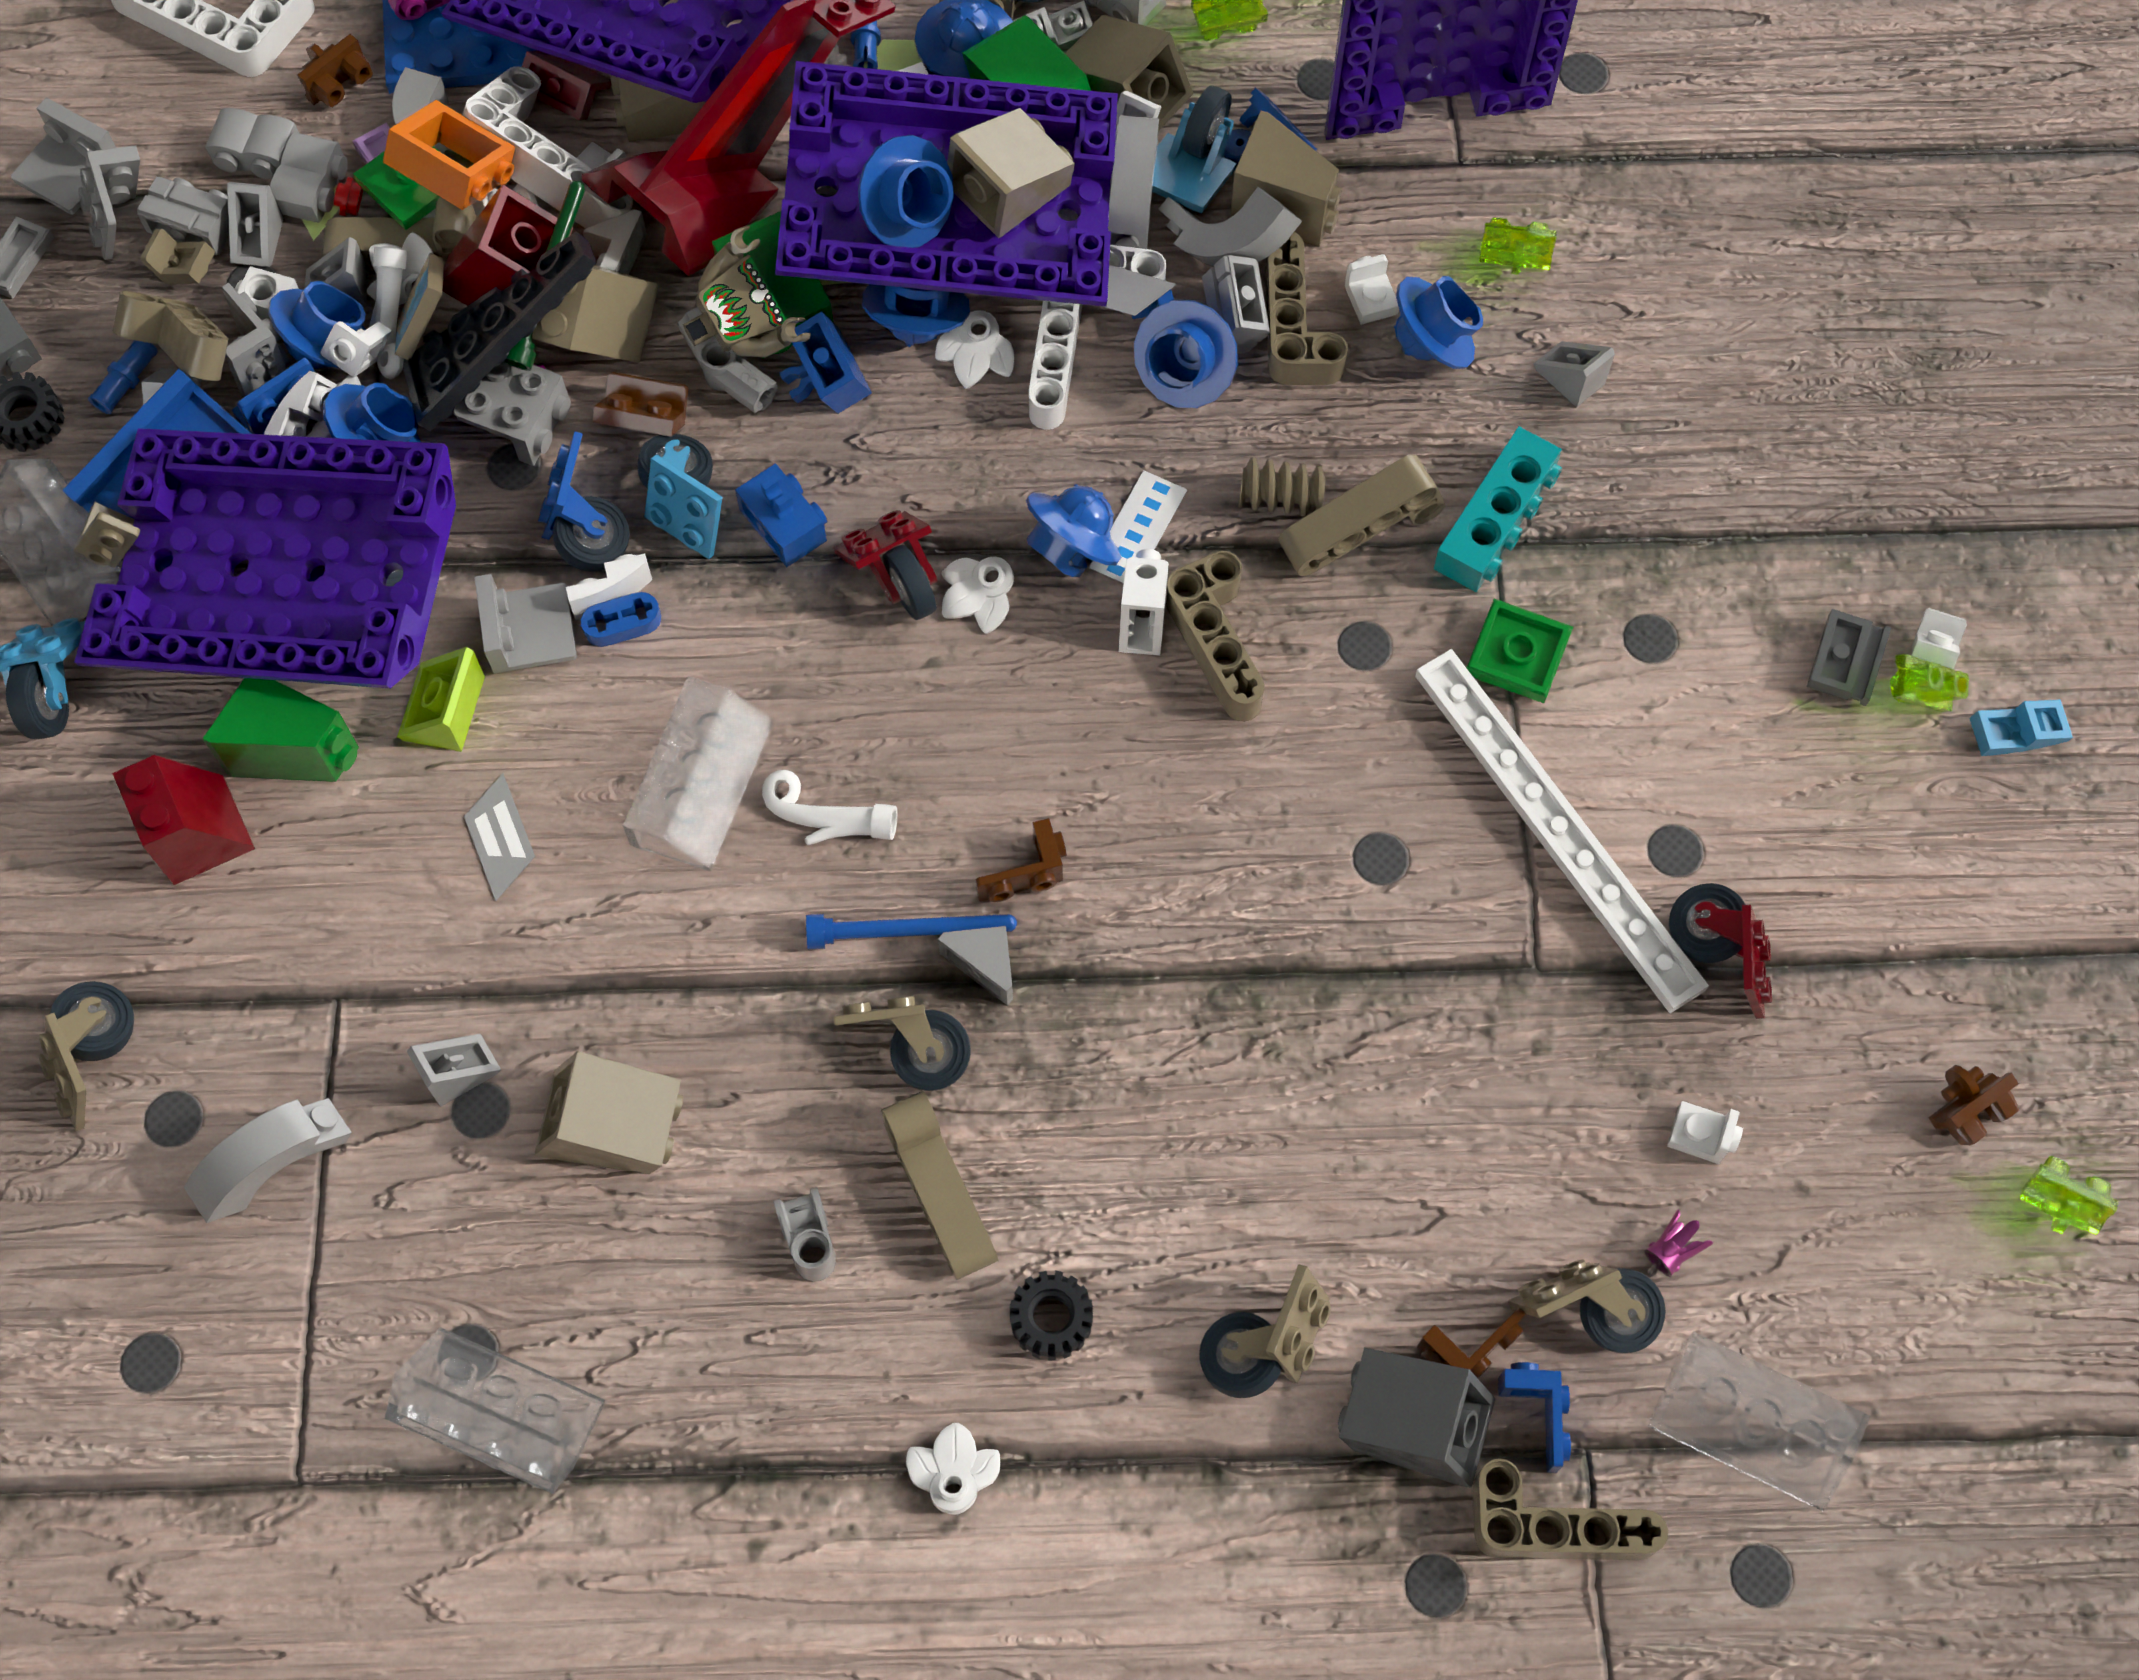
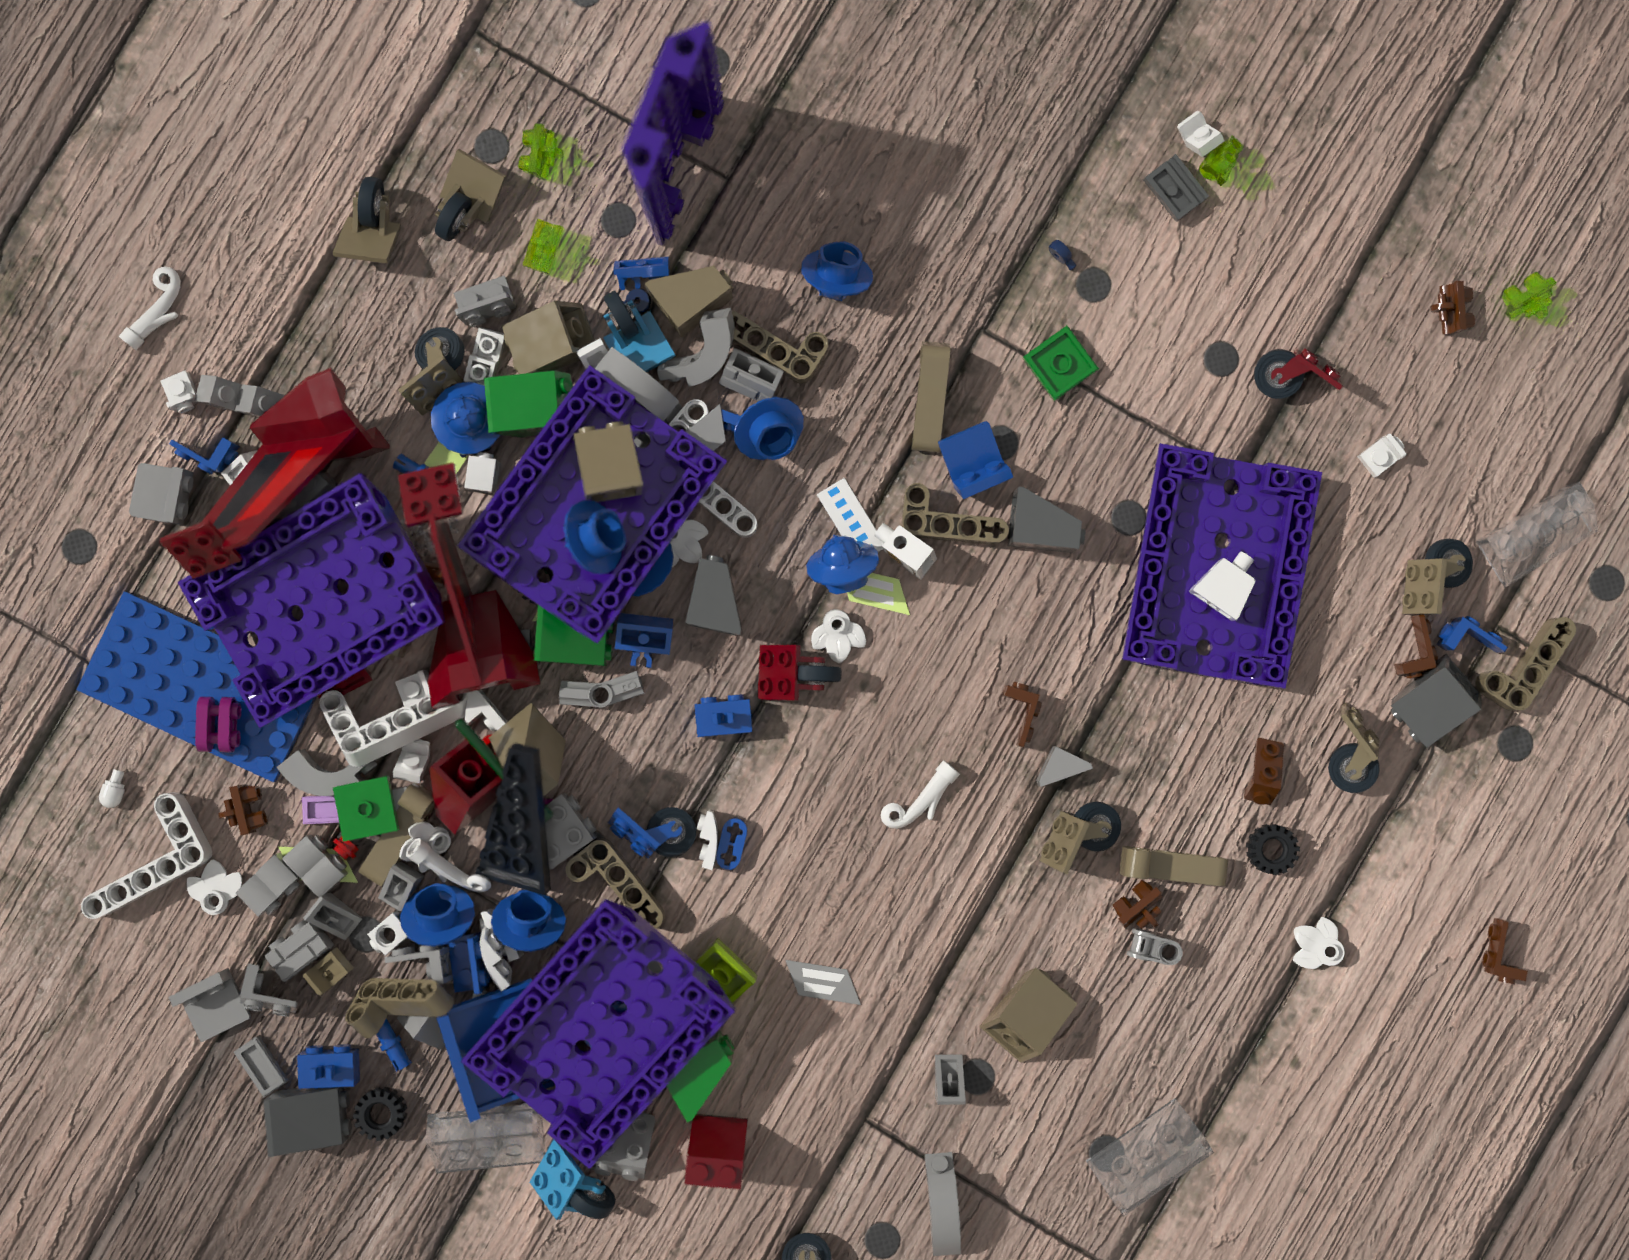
camera: 60 degrees left, 20 degrees up
(52, 323) = (328, 1067): none -> blue brick
(106, 536) = (513, 1111): dark tan bracket -> none
(131, 707) = (629, 1152): none -> light grey bracket
(212, 92) = (214, 883): none -> white plate
(353, 349) = (471, 904): white bracket -> none
(412, 154) = (384, 799): orange window -> none
(419, 306) = (462, 851): dark tan tile -> none
(471, 559) = (620, 887): none -> dark tan beam
(524, 625) = (705, 899): light grey bracket -> none
(642, 404) = (603, 757): reddish brown bracket -> none
(677, 494) = (658, 762): dark azure plate -> none
(697, 775) = (858, 856): clear slope -> none
(740, 305) = (589, 668): dark tan torso -> none
(825, 931) = (991, 840): blue piece -> none
(852, 1181) = (1148, 898): none -> reddish brown hips
(927, 411) = (714, 599): none -> dark grey slope
(1067, 610) = (881, 593): none -> yellowish green sticker
(1153, 1235) = (1267, 772): none -> reddish brown bracket
(1282, 486) = (882, 427): dark tan piece -> none
(1287, 736) = (1042, 525): none -> dark grey slope
(1320, 610) = (974, 460): none -> blue bracket
(1368, 951) = (1265, 519): none -> dark purple slope
(1370, 289) = (784, 290): white bracket -> none
(1375, 1014) = (1226, 586): none -> white torso
(1517, 245) = (812, 189): clear neon green hips -> none
(1523, 457) = (962, 274): teal brick -> none
(1562, 832) = (1174, 414): white plate -> none
(1576, 369) = (908, 211): light grey slope -> none
(1658, 572) = (1062, 254): none -> dark blue piece
(1668, 1251) = (1435, 517): flat silver piece -> none
(2021, 729) = (1271, 125): dark azure slope -> none

